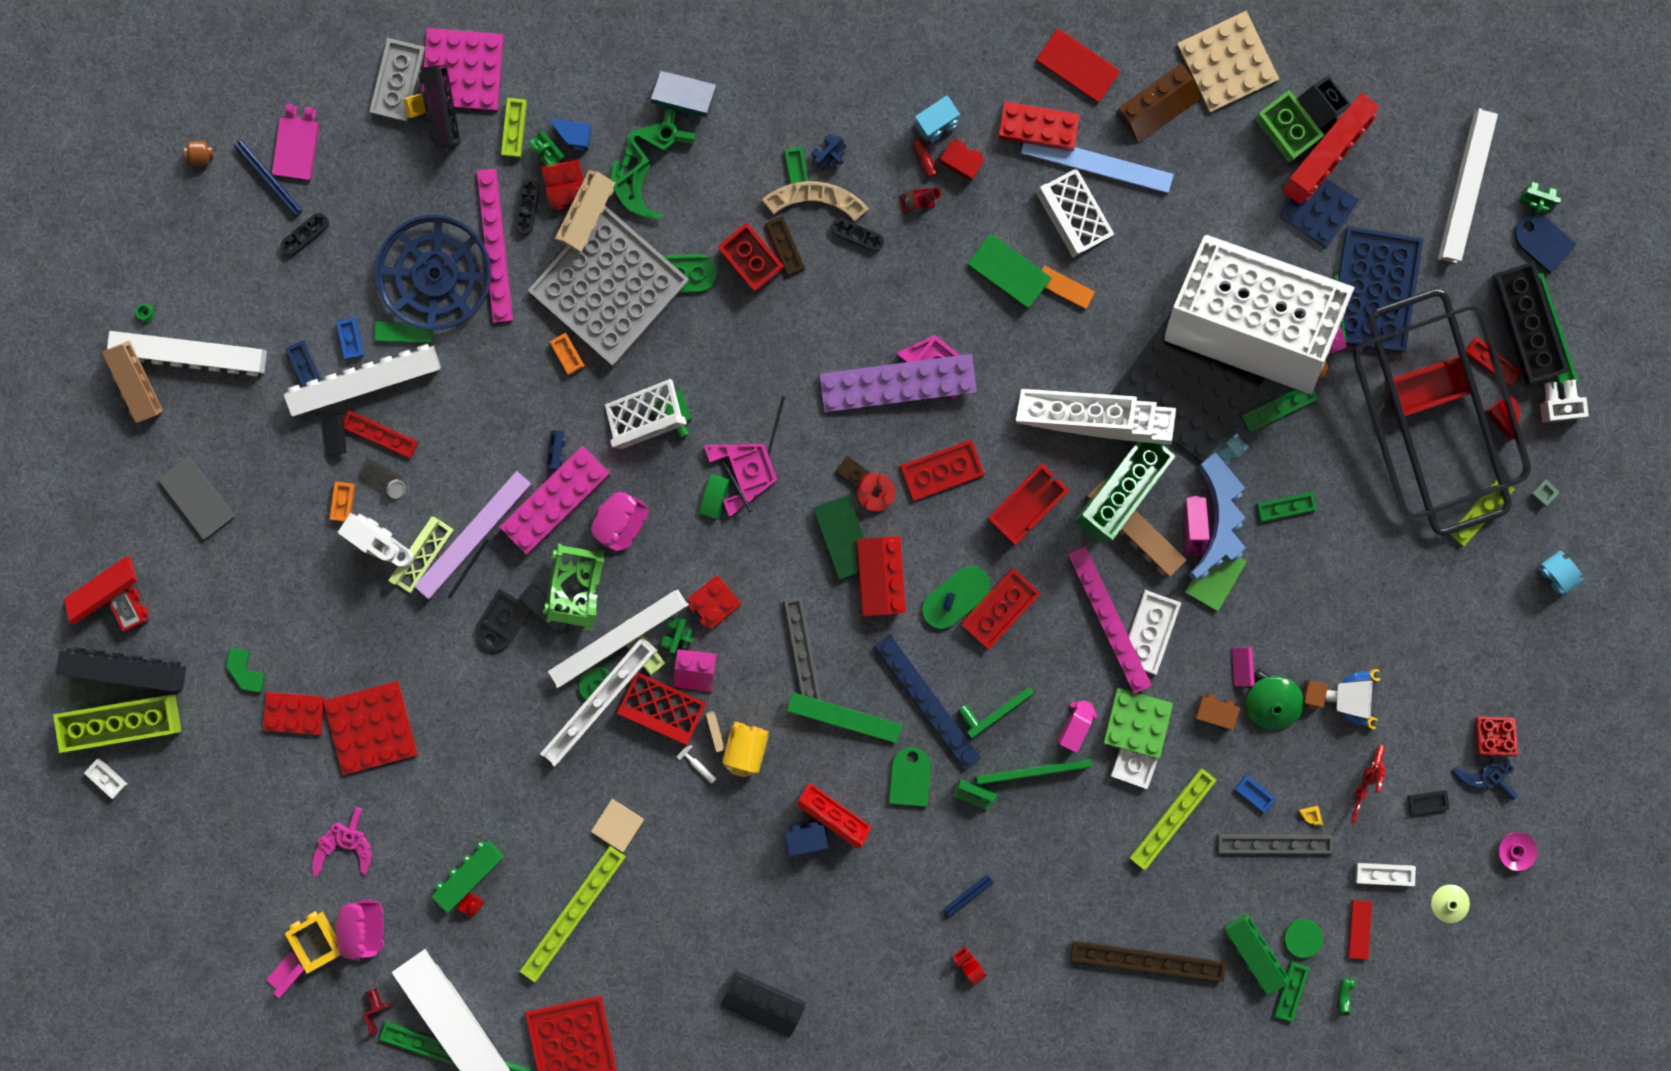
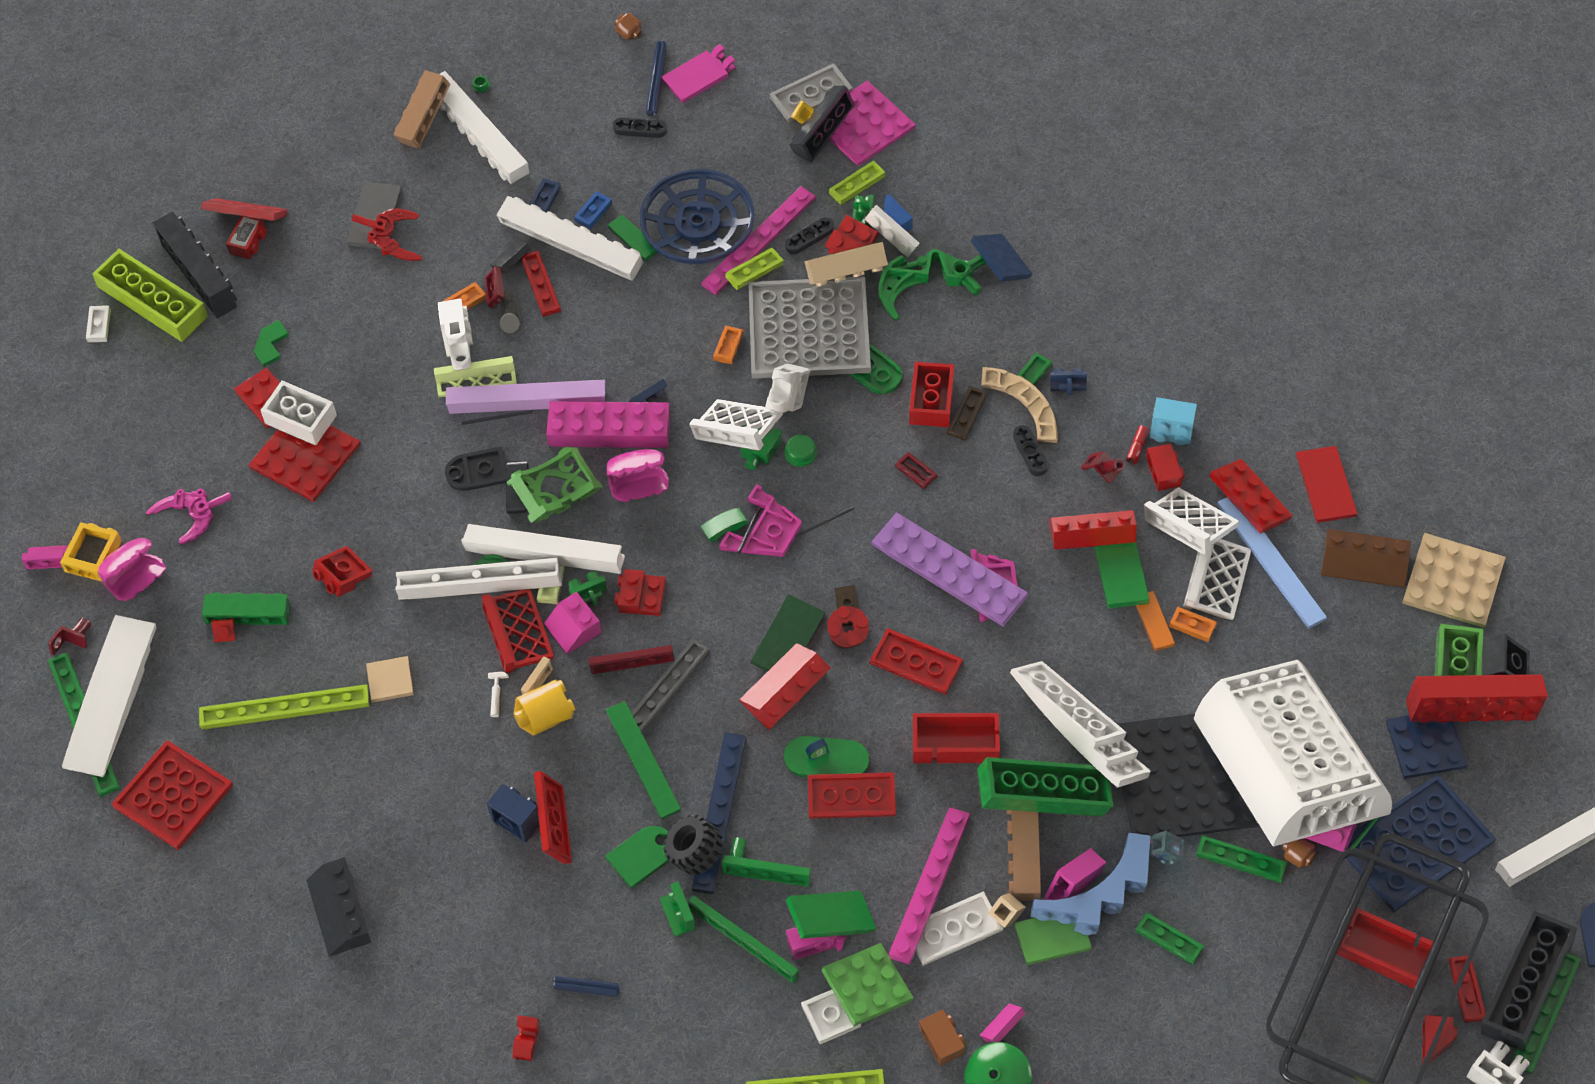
camera: 50 degrees right, 30 degrees down
(220, 506) = (383, 228): none -> red bar
(338, 709) = (298, 412): none -> white brick
(353, 472) = (494, 287): none -> dark red tile
(499, 786) = (341, 571): none -> red plate
(519, 274) = (754, 268): none -> lime plate
(587, 150) = (892, 231): none -> white plate
(654, 357) = (787, 388): none -> white brick
(705, 389) = (800, 451): none -> green piece
(761, 656) = (631, 659): none -> dark red tile
(797, 333) = (927, 481): none -> dark red tile
(933, 754) = (693, 844): none -> black tyre
(960, 256) = (1093, 529): none -> red slope
(1020, 203) = (1181, 527): none -> white fence
(1075, 706) = (830, 914): none -> green tile
(1093, 265) = (1192, 624): none -> orange plate
(1175, 591) = (1006, 910): none -> tan brick

